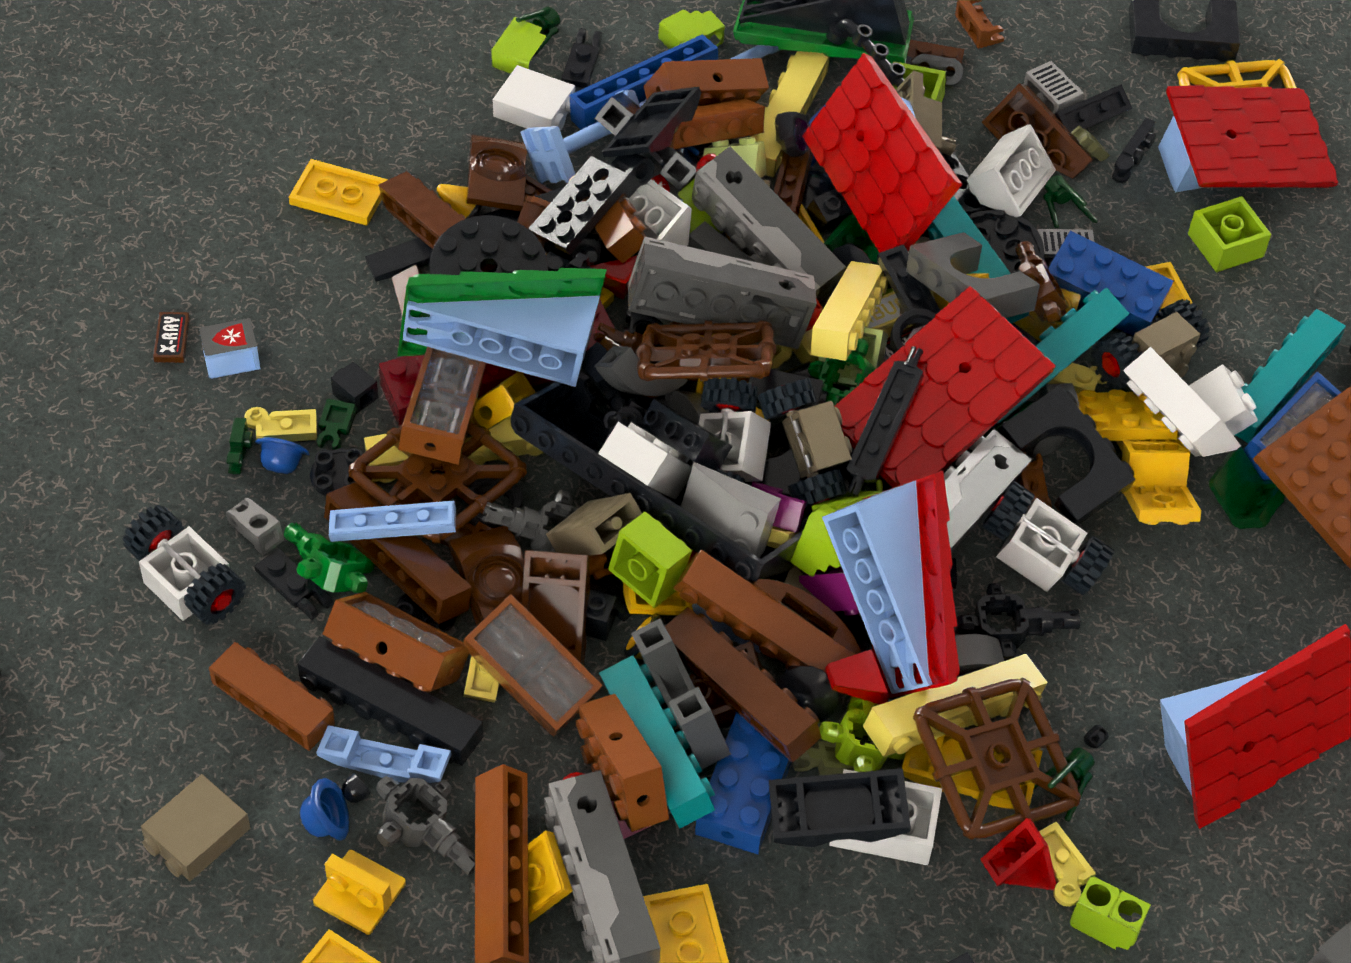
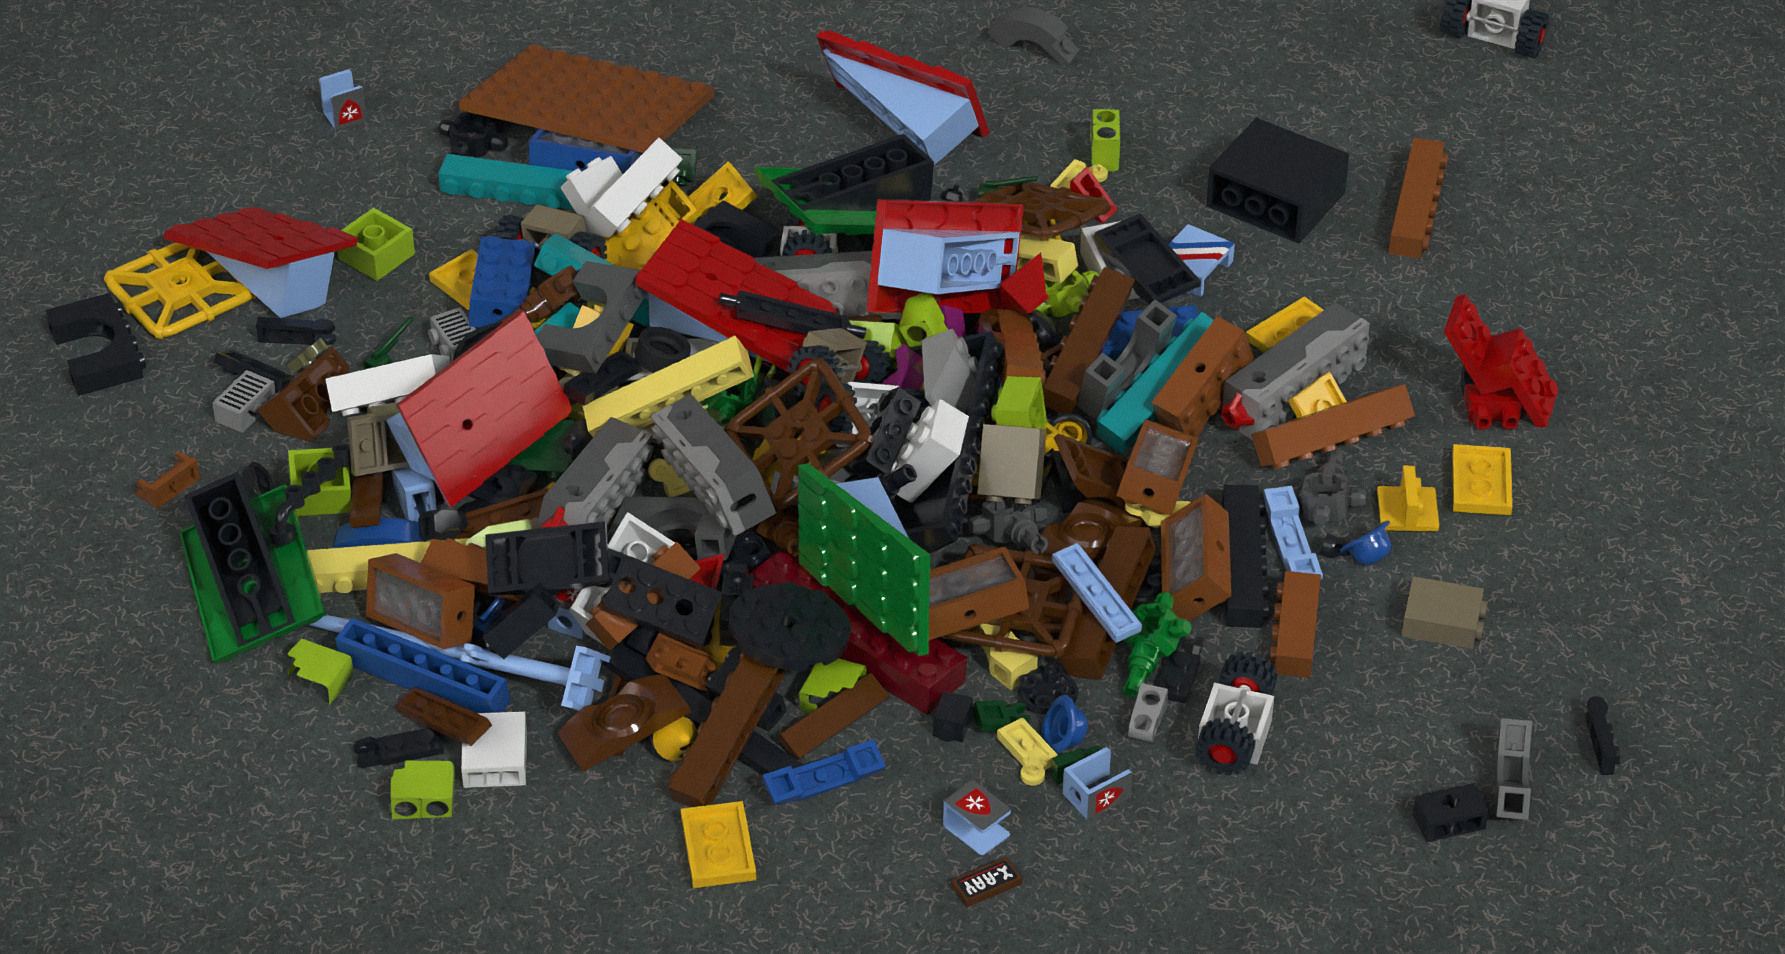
camera: 115 degrees left, 10 degrees down
(188, 431) = (1101, 796): none -> light blue piece
(359, 272) = (824, 775): none -> blue slope
(545, 18) = (363, 793): dark green plant -> none
(570, 73) = (443, 716): none -> reddish brown tile
(857, 898) = (1202, 252): none -> panel
(1091, 594) = (845, 190): none -> black piece

